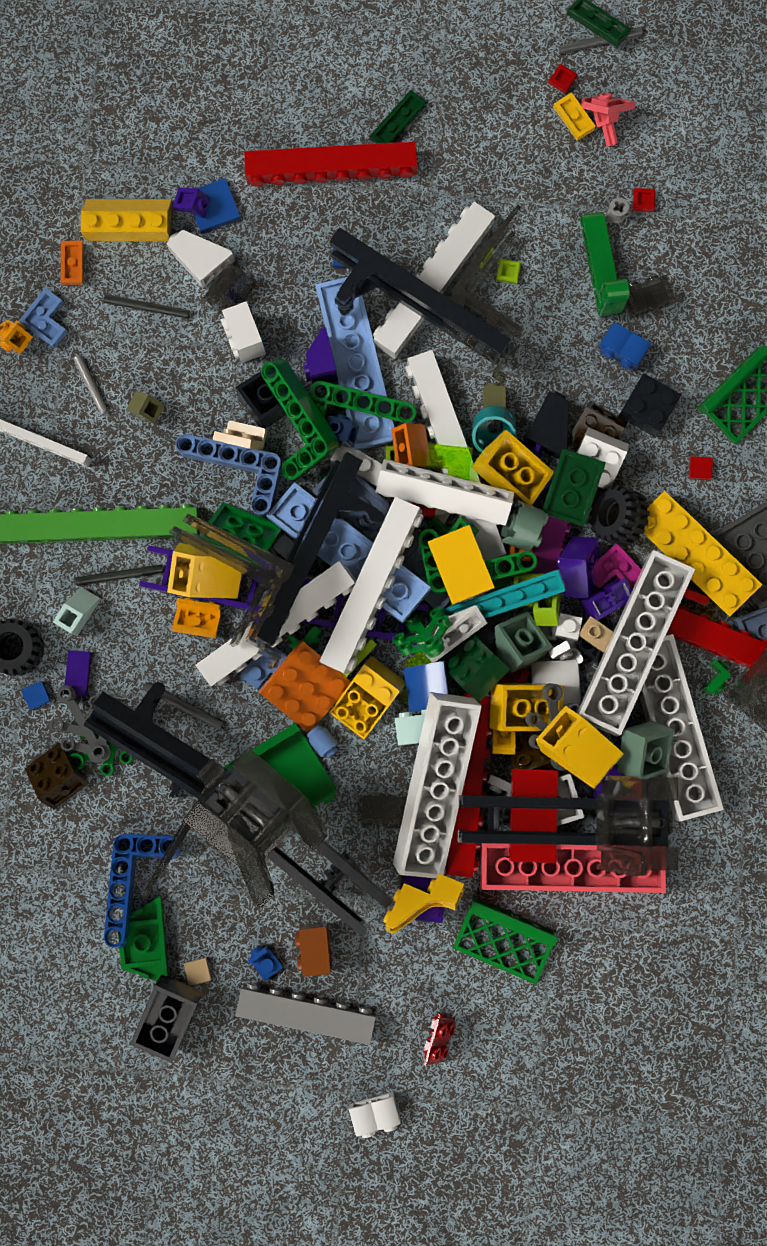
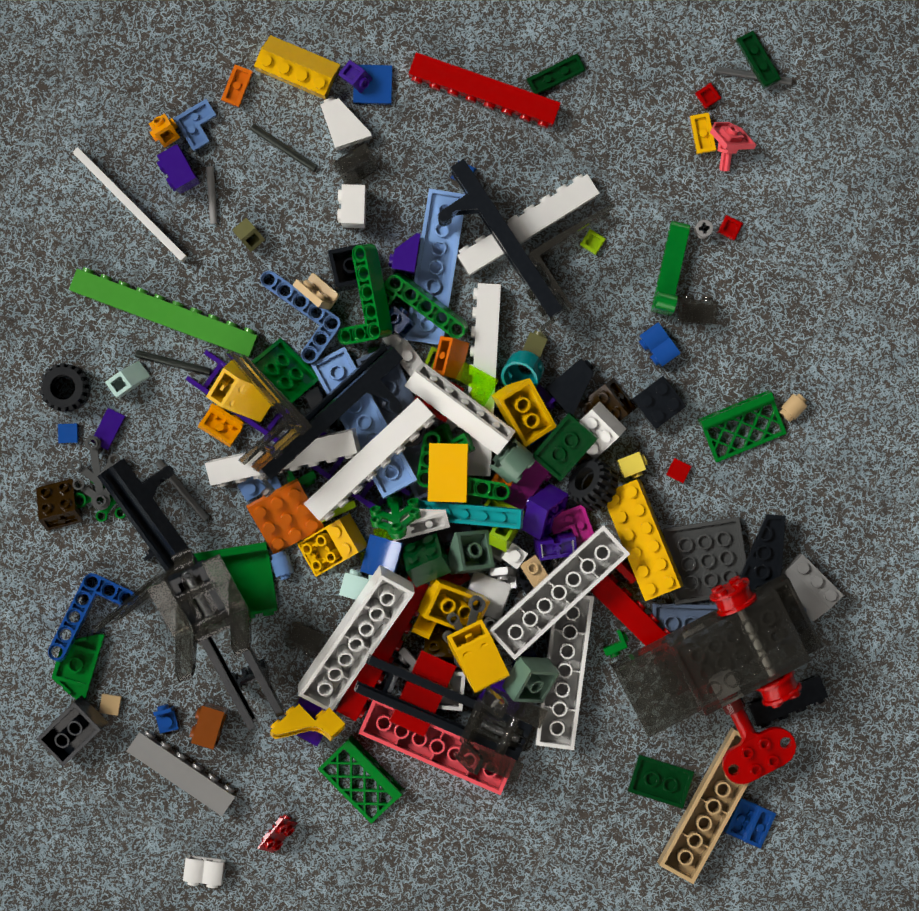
camera: 15 degrees right, 5 degrees up
(42, 369) = (177, 167): none -> dark purple brick
(650, 481) = (632, 465): none -> light yellow brick

